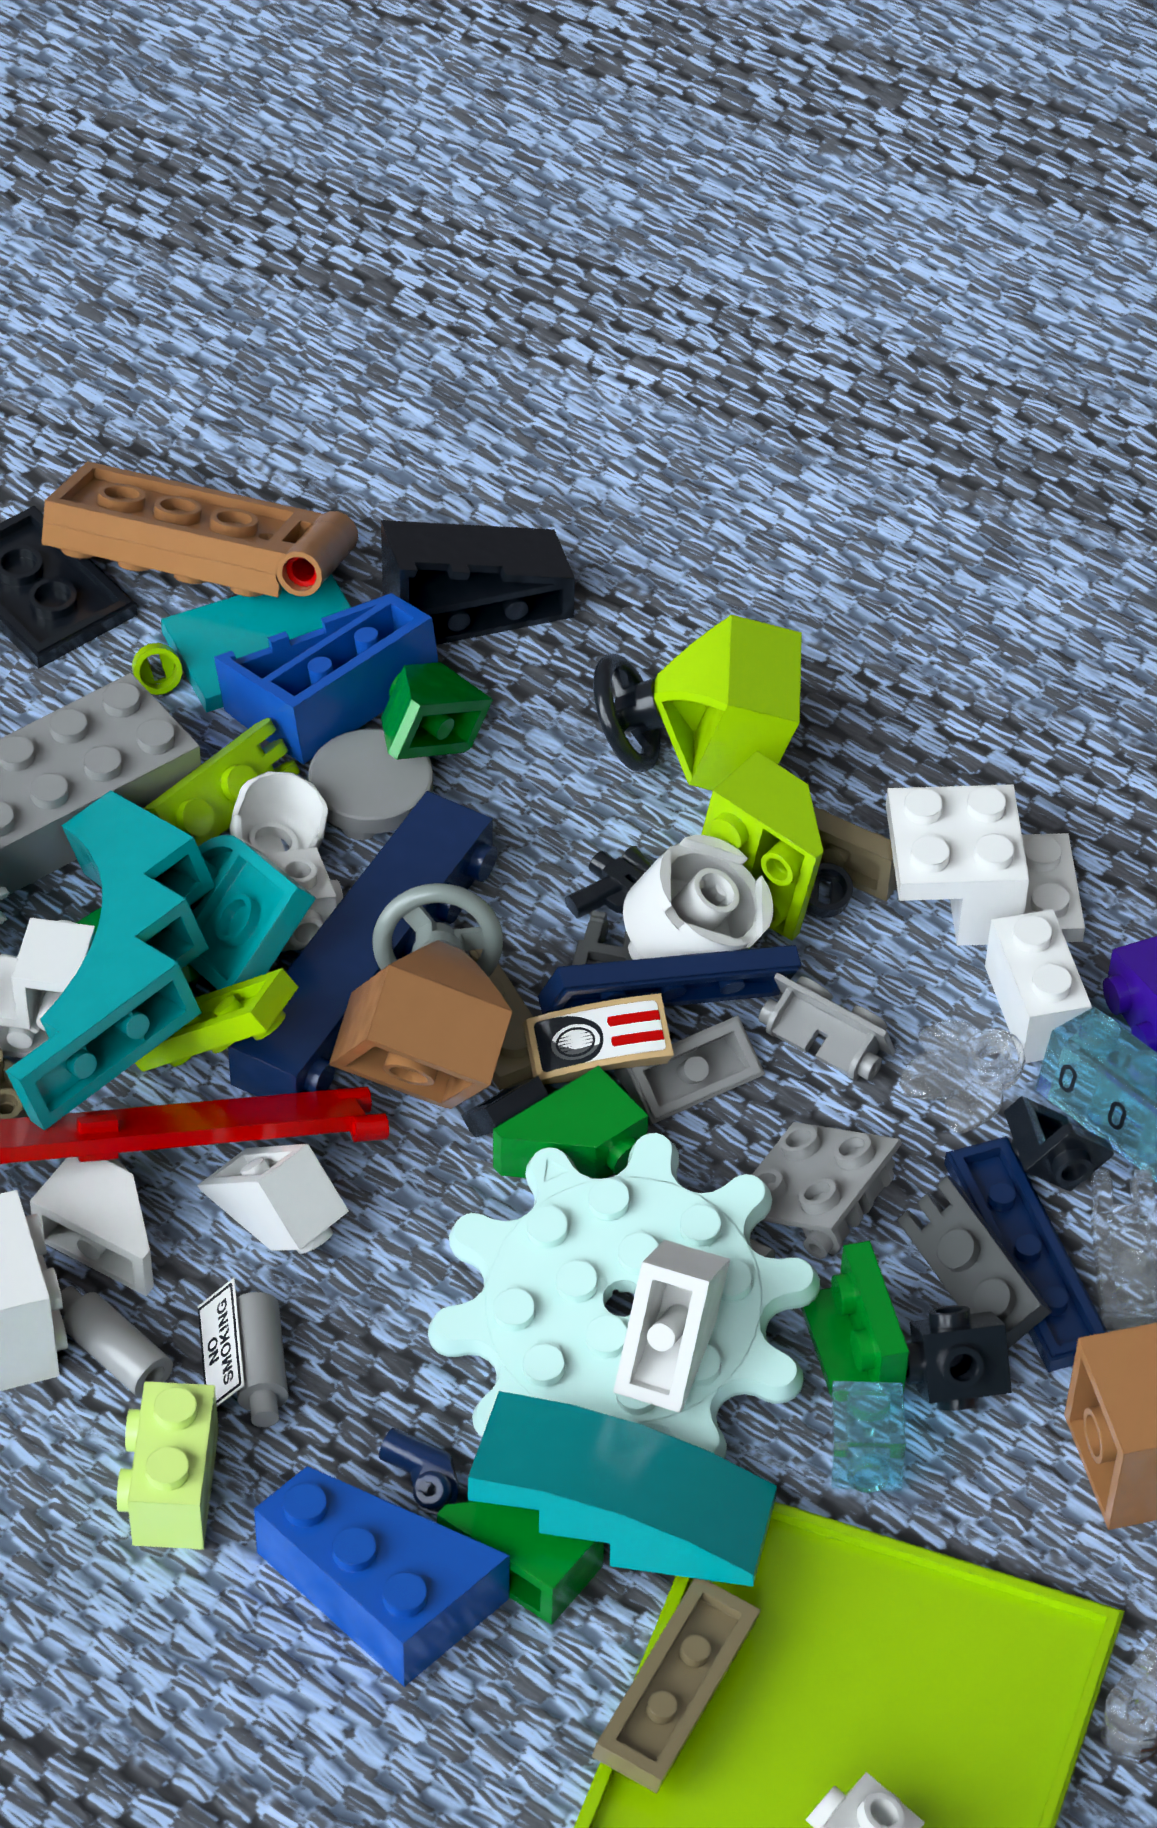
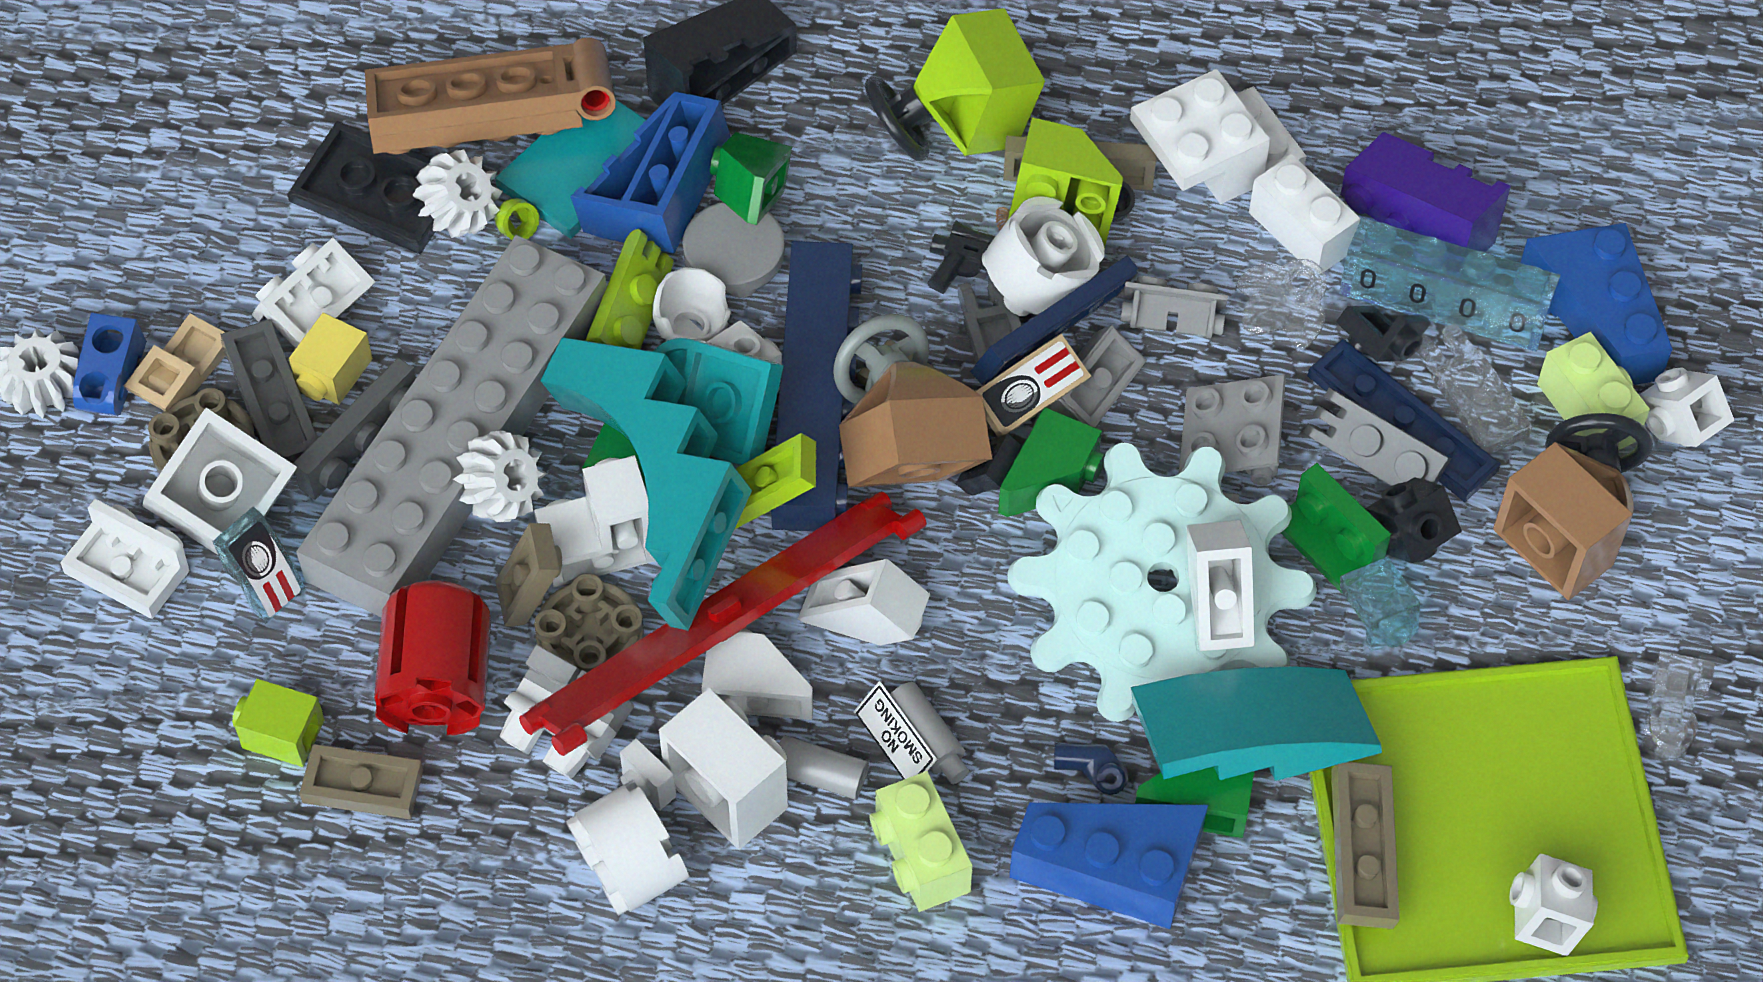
camera: 25 degrees left, 10 degrees up
(90, 595) = (457, 193): none -> white gear

